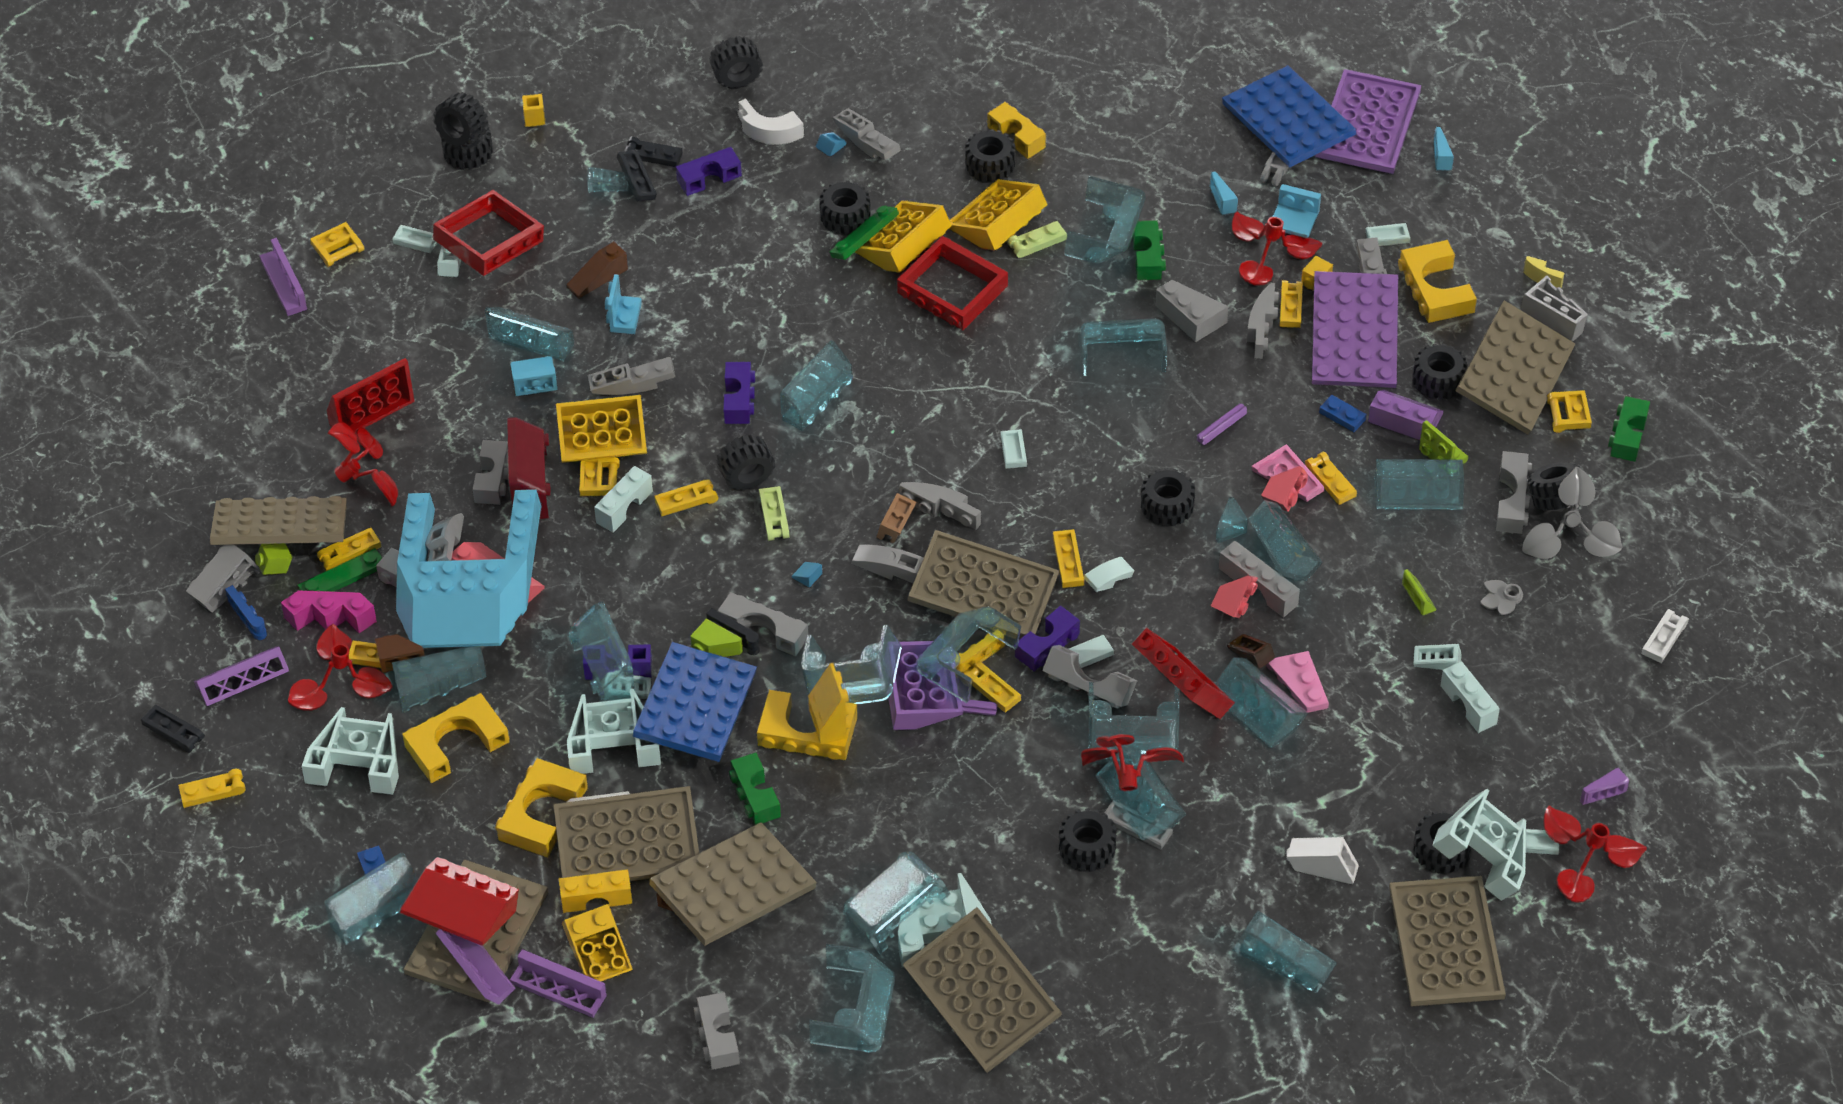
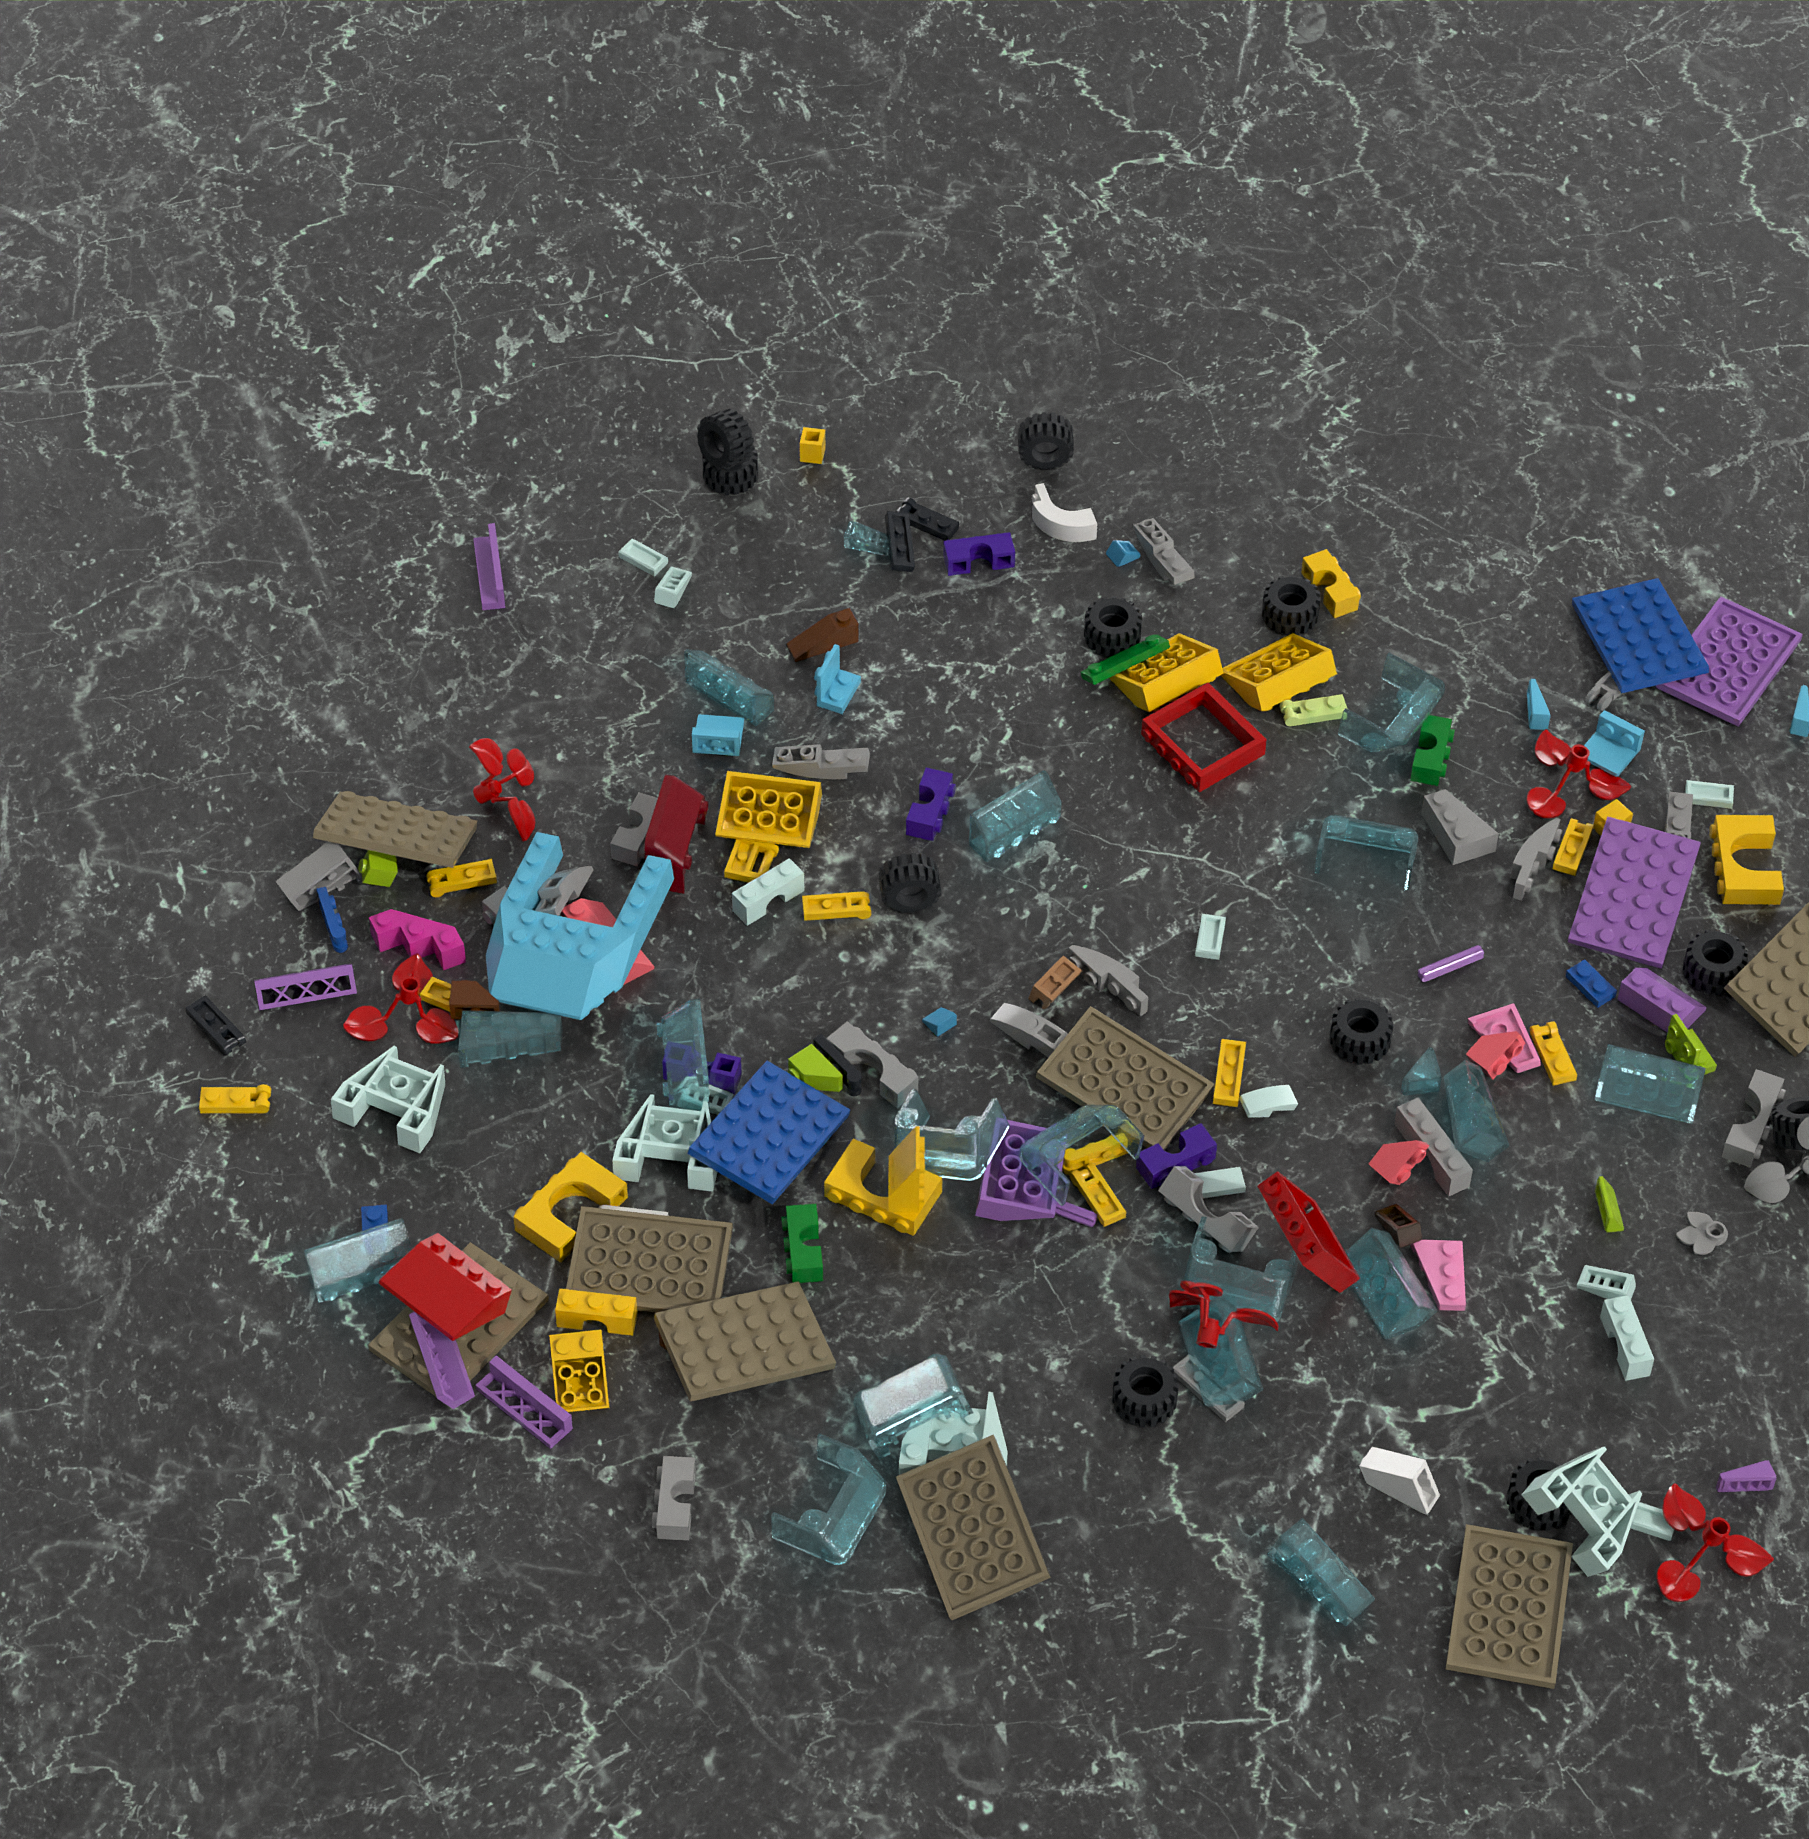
camera: 15 degrees right, 0 degrees up
(334, 239) = (555, 539): yellow plate -> none
(344, 573) = (447, 902): green plate -> none
(372, 397) = (536, 719): red slope -> none
(472, 715) = (527, 1087): yellow arch -> none
(530, 234) = (762, 583): red window -> none
(774, 512) = (925, 945): yellowish green plate -> none

